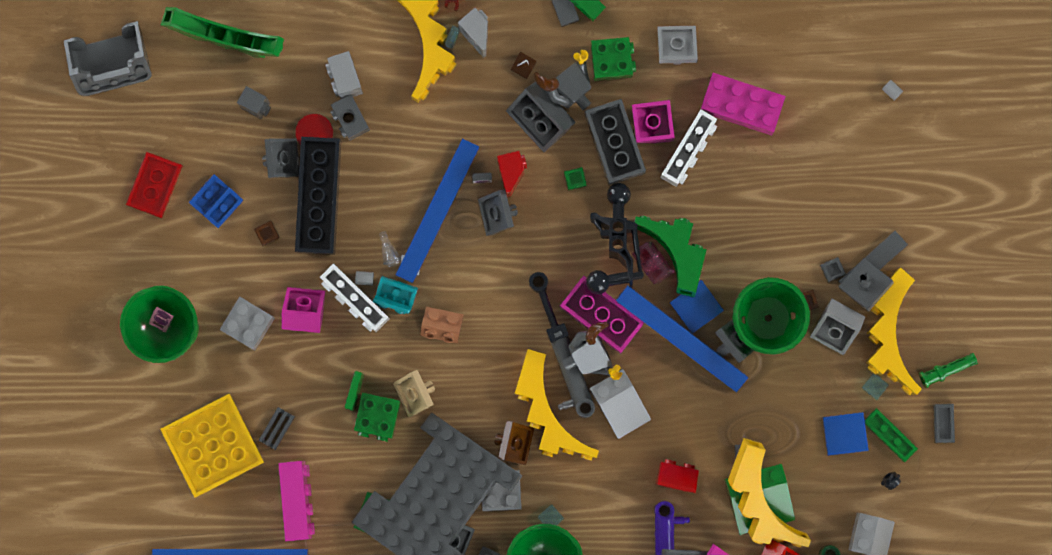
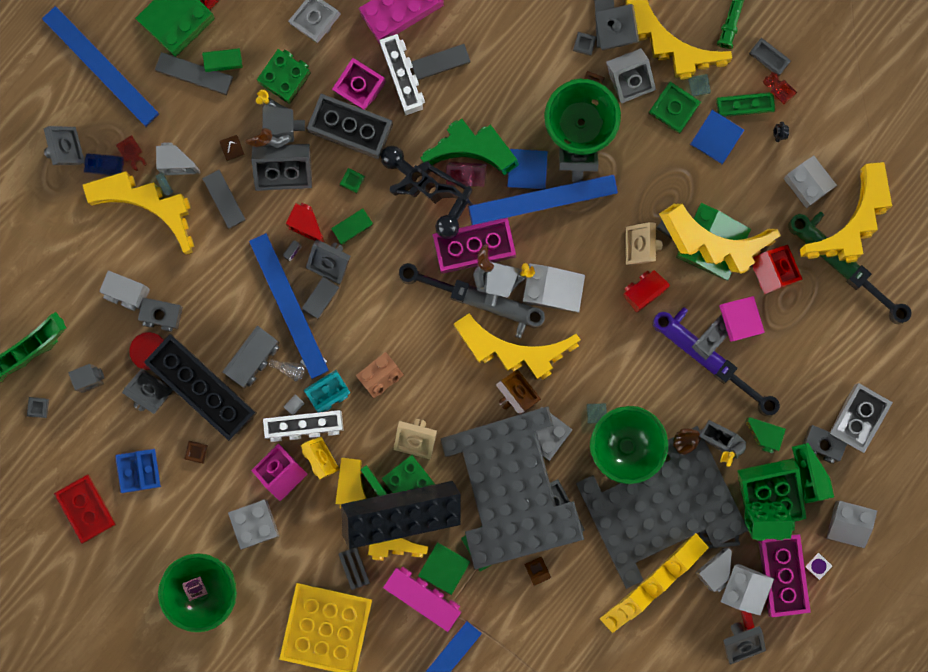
camera: 45 degrees left, 0 degrees up
(202, 84) = (37, 407): none -> dark grey tile
(316, 432) = (351, 489): none -> yellow arch
(333, 498) = (444, 568): none -> green tile
(339, 332) = (319, 457): none -> yellow hinge
(346, 430) = (401, 514): none -> black brick
(373, 215) = (251, 357): none -> dark grey slope
(463, 230) = (320, 297): none -> dark grey tile
(479, 92) = (224, 199): none -> dark grey tile
(539, 208) = (352, 226): none -> green tile
(711, 444) = (641, 243): none -> tan tile
(724, 170) = (440, 62): none -> dark grey tile
(841, 381) = (674, 107): none -> green tile
(924, 453) = (780, 89): none -> clear red plate

